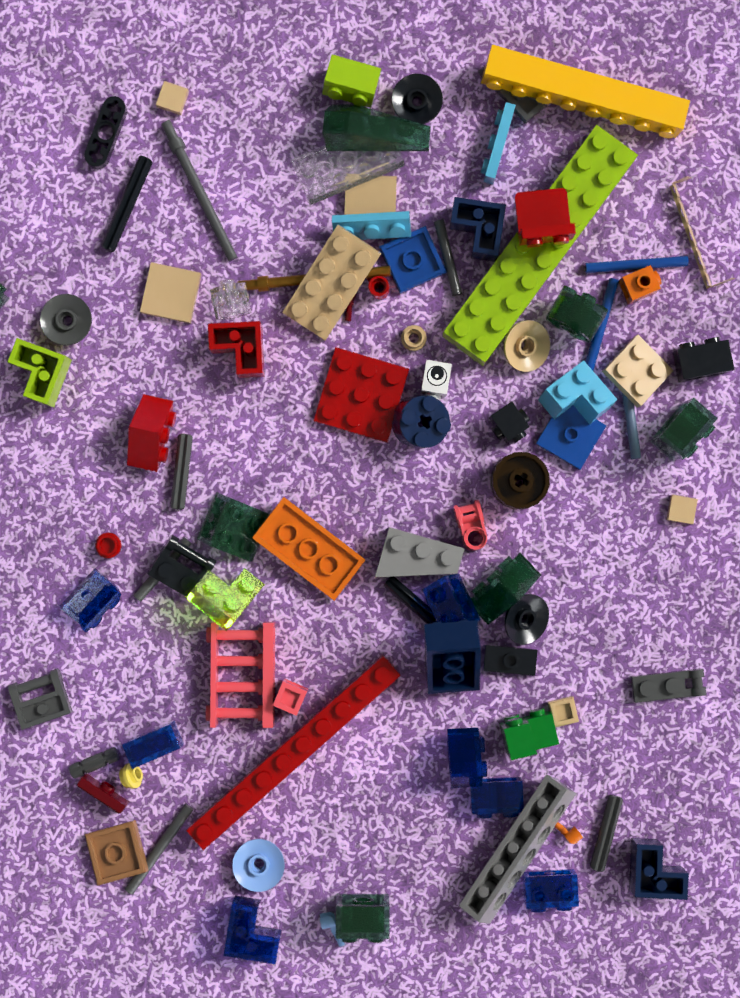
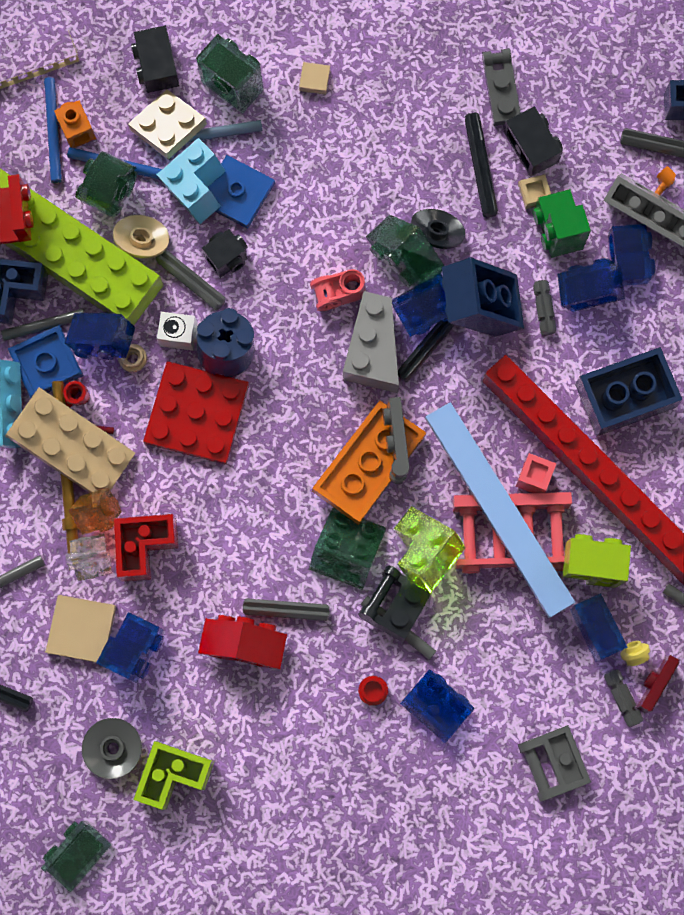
camera: 90 degrees left, 10 degrees down
(143, 333) = (131, 648): none -> clear blue brick
(207, 746) = (597, 561): none -> lime brick
(257, 662) = (500, 510): none -> light blue tile
(270, 304) = (95, 511): none -> clear orange brick
(322, 573) = (396, 441): none -> dark grey plate
(364, 785) = (628, 391): none -> dark blue brick
(430, 309) = (100, 335): none -> clear blue brick
(449, 714) = (544, 307): none -> dark grey axle
(485, 391) = (191, 279): none -> dark grey axle
(510, 660) = (483, 240): black plate -> none
(534, 476) = (288, 239): dark brown wheel -> none
(590, 662) = (481, 165): none -> black axle
(611, 712) = (533, 141): none -> black brick

